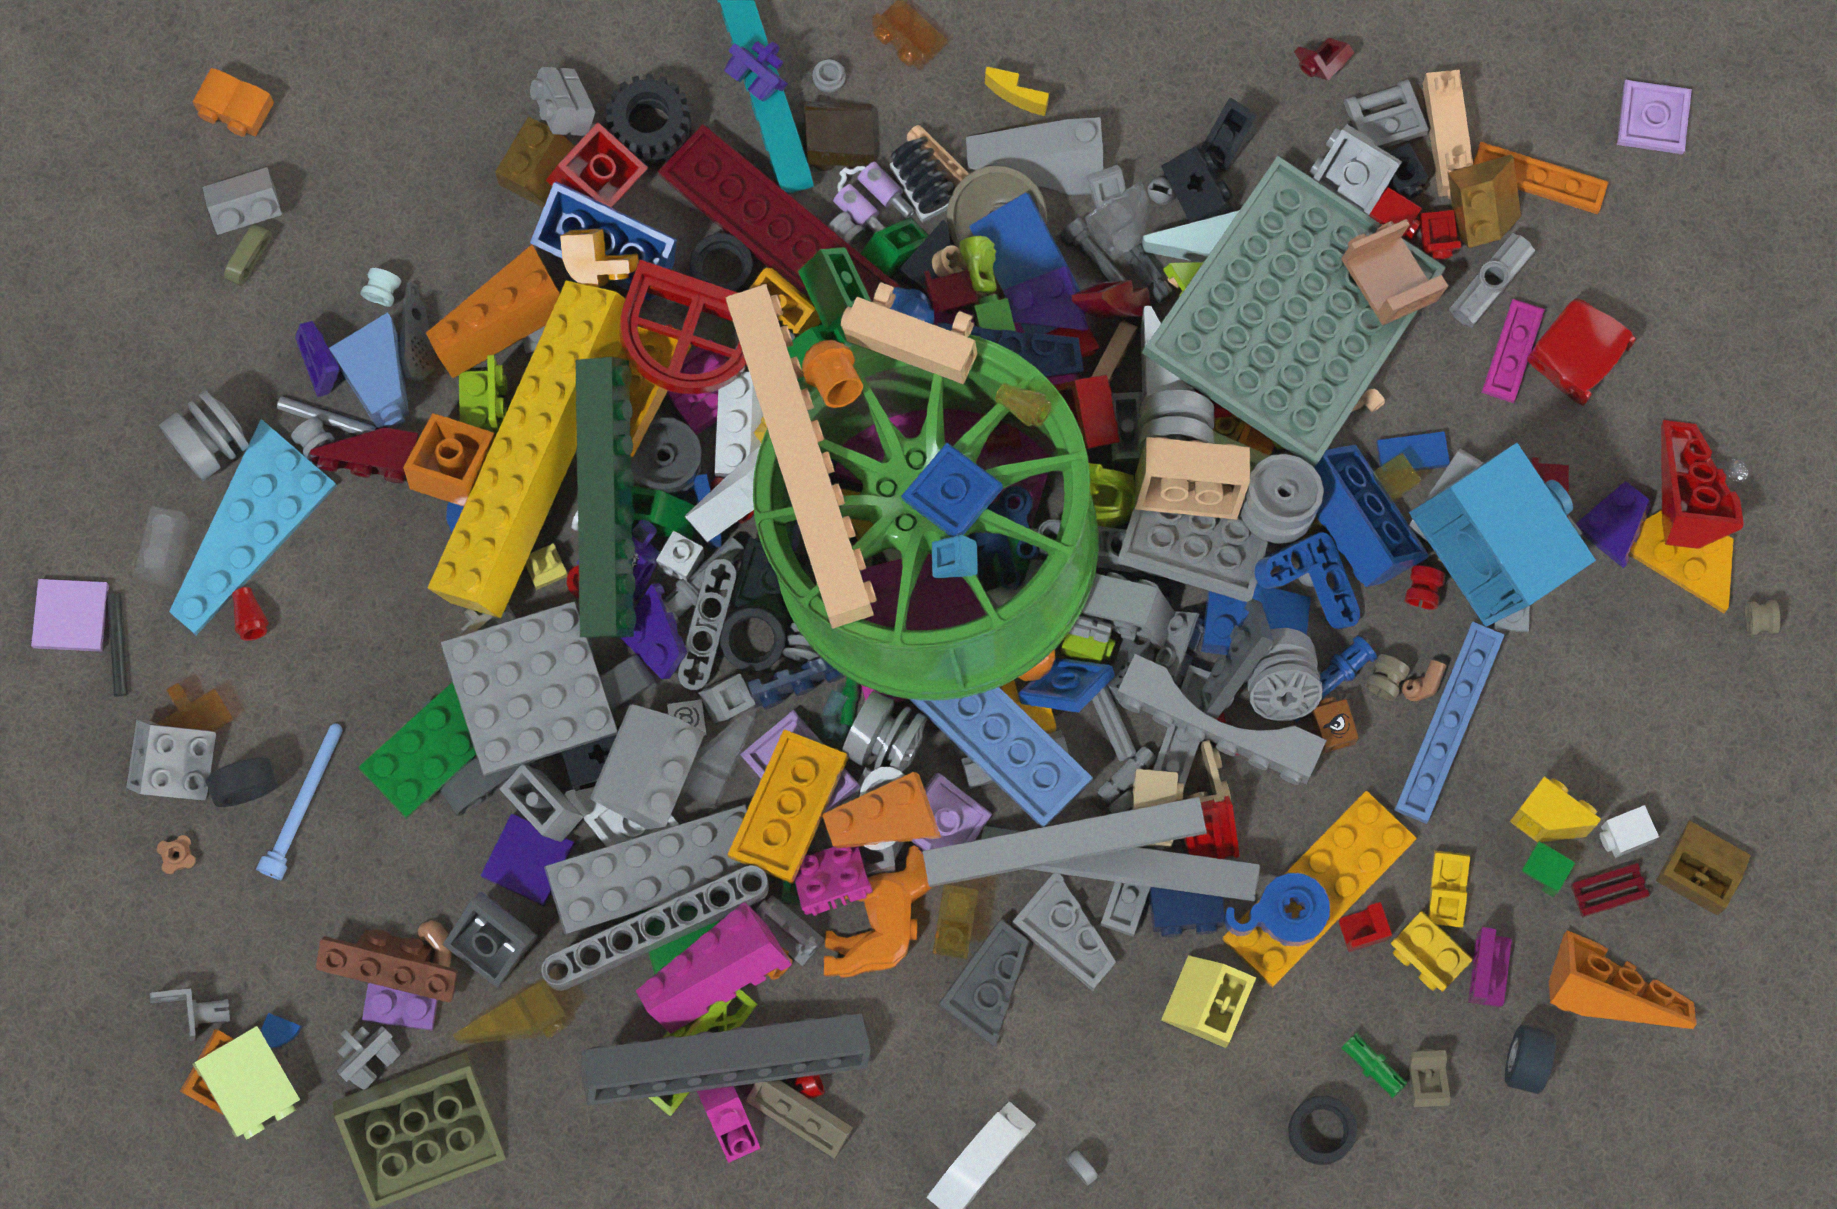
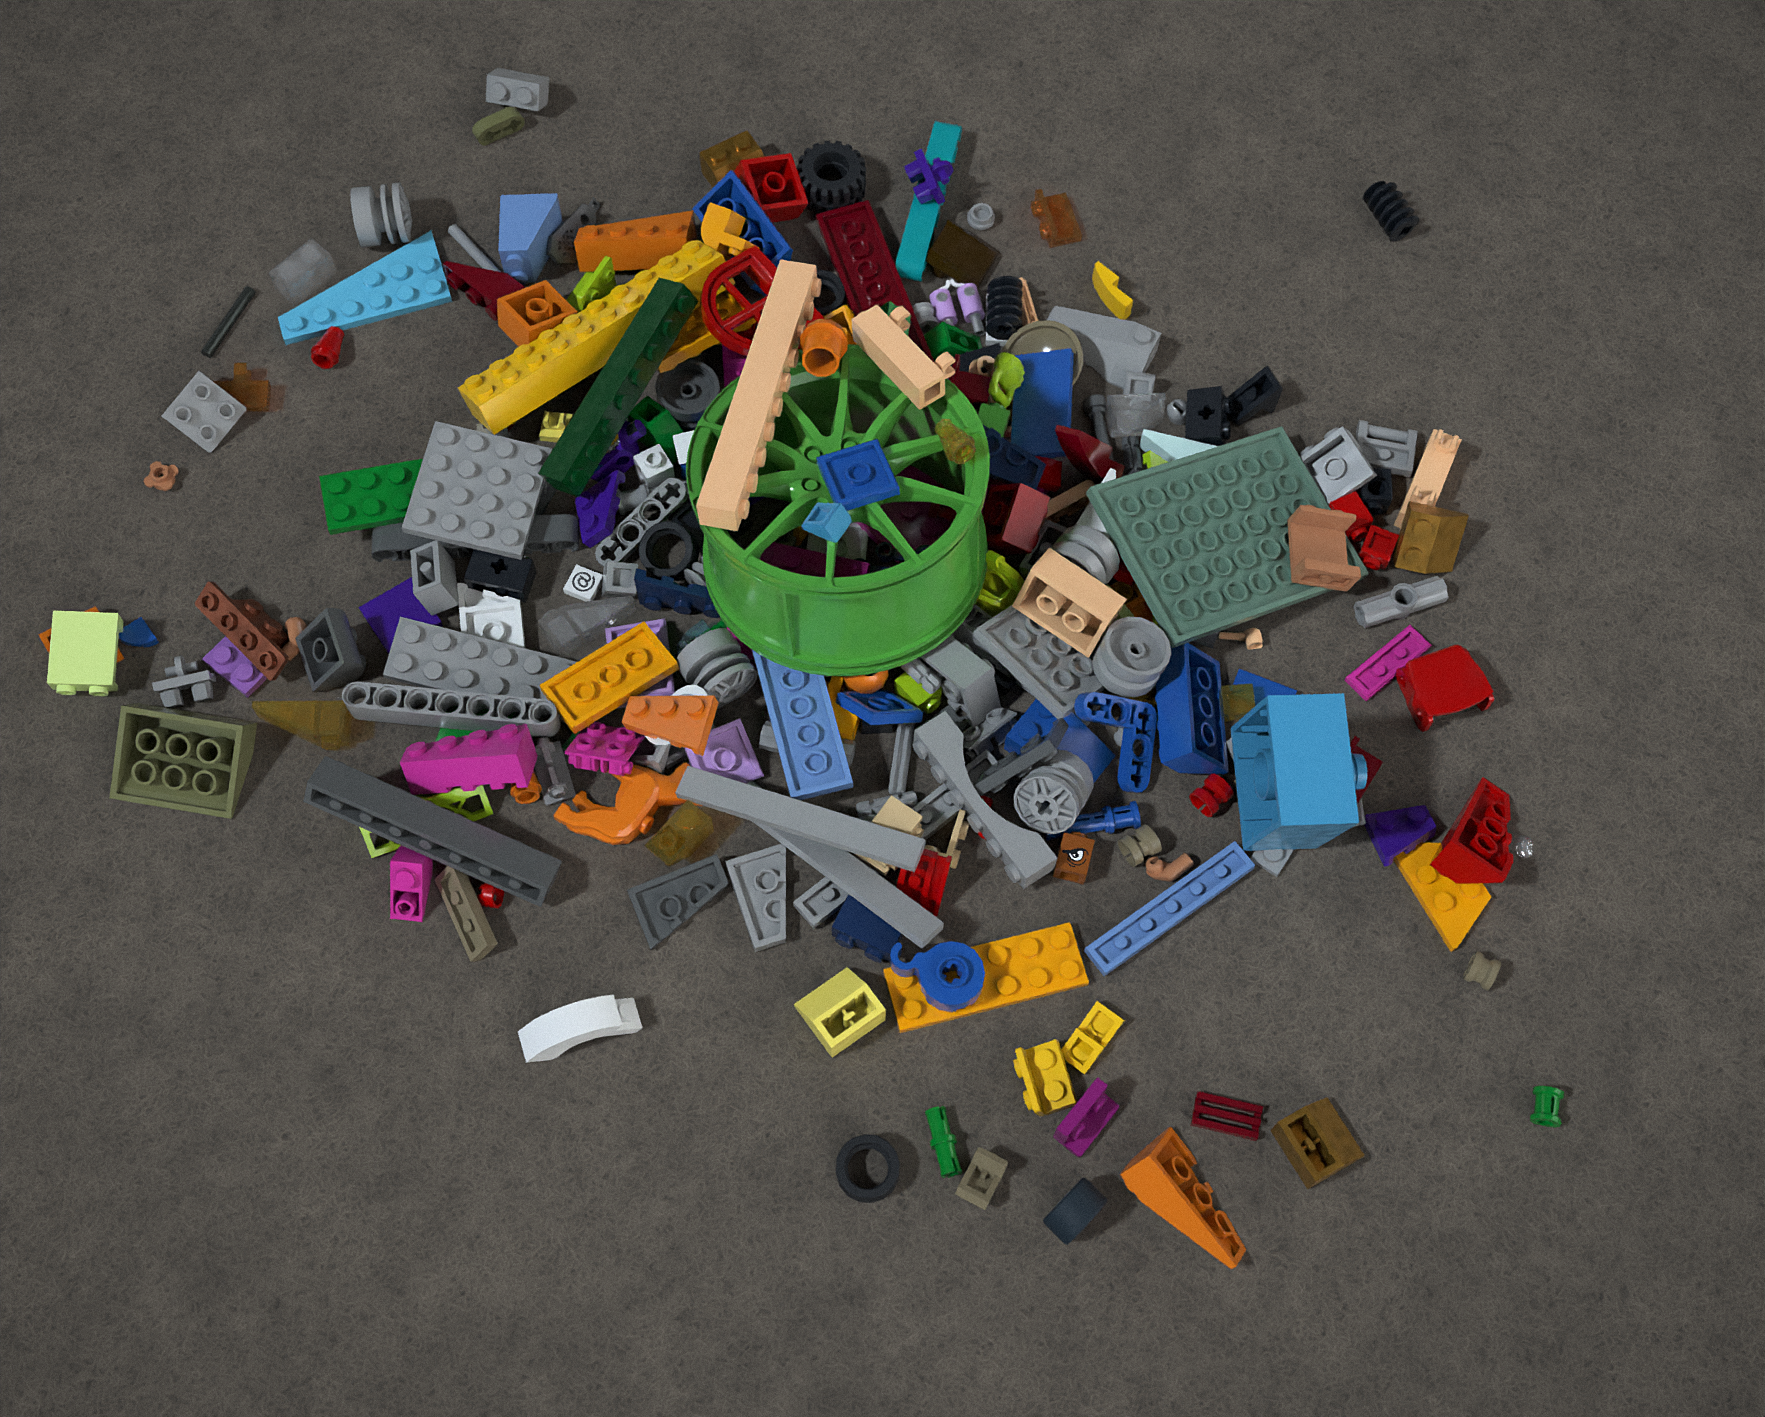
camera: 30 degrees right, 10 degrees down
(70, 615) = (211, 286): lavender tile -> none
(196, 1012) = (89, 585): light grey bracket -> none
(233, 103) = (557, 31): orange brick -> none
(241, 782) = (237, 448): black tyre -> none
(275, 861) = (224, 517): light blue piece -> none
(311, 435) = (456, 252): light grey wheel -> none
(317, 358) = (492, 218): dark purple wing -> none
(381, 287) = (572, 190): light aqua wheel -> none
(562, 101) = (777, 131): light grey brick -> none
(647, 766) = (524, 590): light grey slope -> none
(1046, 301) = (1037, 430): dark purple wing -> none
(1081, 1167) = (654, 1082): light grey tile -> none
(1325, 60) = (1360, 387): dark red bracket -> none
(1365, 928) = (1003, 1028): red panel -> none
(1548, 868) = (1183, 1066): green panel -> none
(1550, 180) = (1494, 561): orange tile -> none
(1554, 814) = (1211, 1024): yellow slope -> none
(1628, 832) = (1269, 1076): white brick -> none
(1654, 117) = (1601, 555): lavender tile -> none

